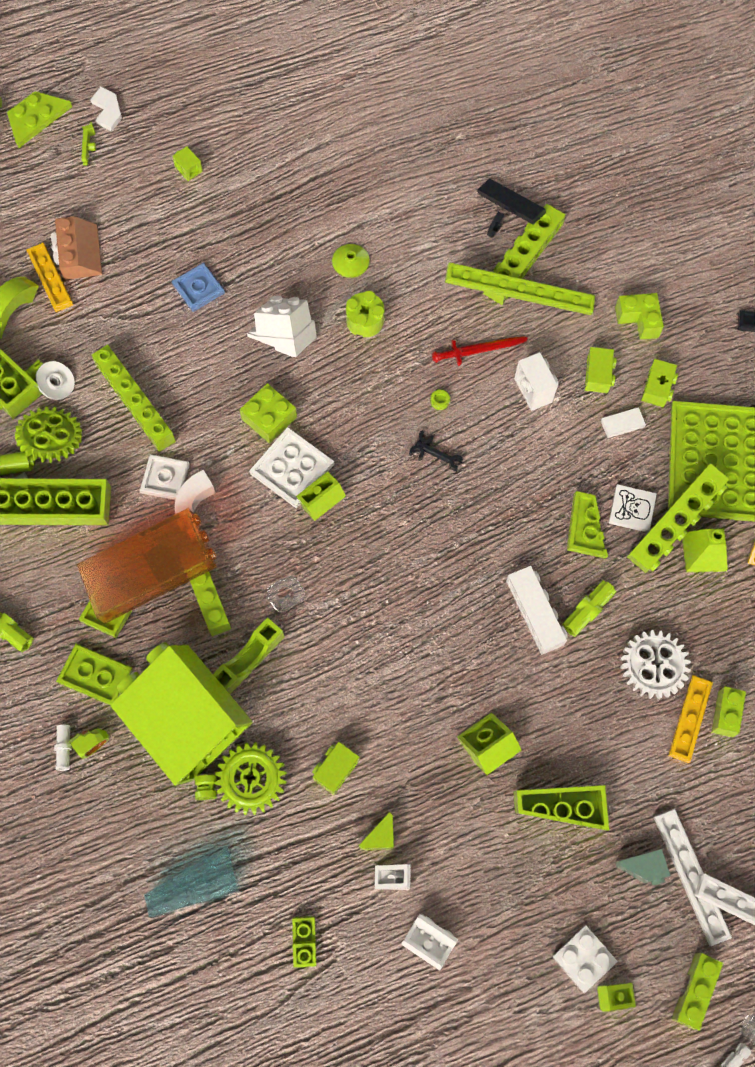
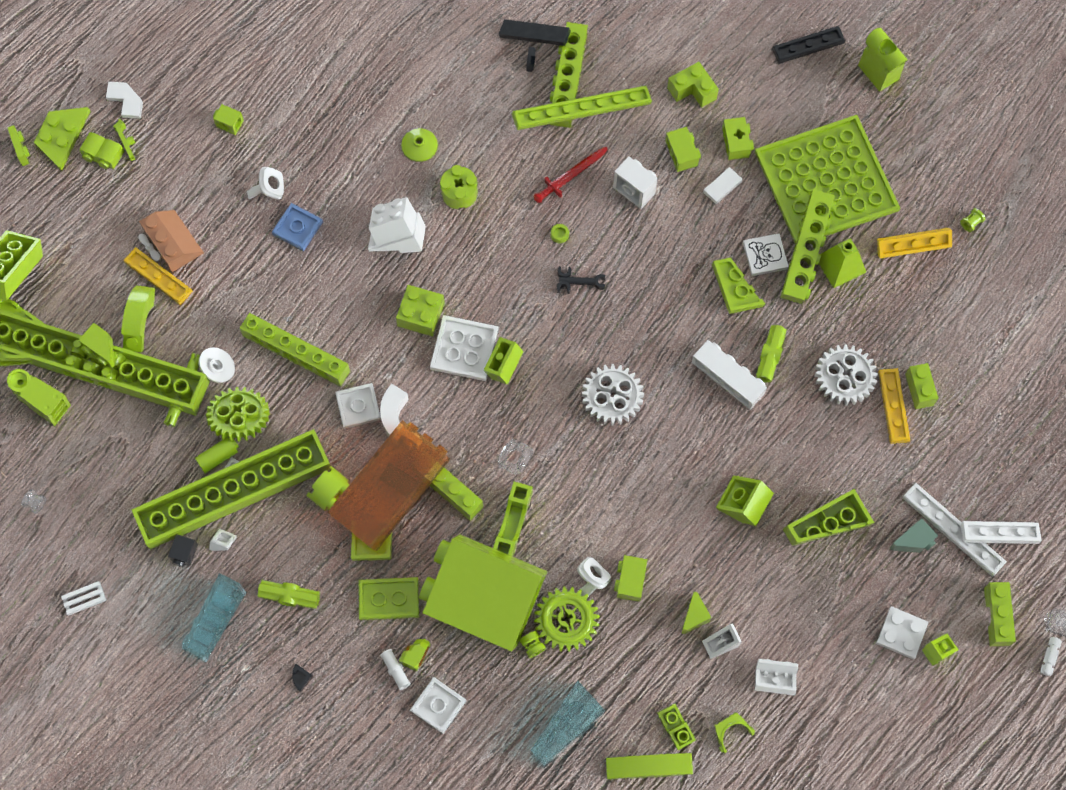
camera: 25 degrees left, 0 degrees up
(60, 143) = (101, 150): none -> lime brick
(85, 803) = (438, 705): none -> white tile
(90, 541) = (328, 488): none -> lime brick
(184, 236) = (264, 187): none -> white piece
(255, 969) = (649, 766): none -> lime slope
(294, 755) = (592, 582): none -> white piece
(357, 964) = (722, 726): none -> lime helmet
(423, 564) = (617, 379): none -> white gear

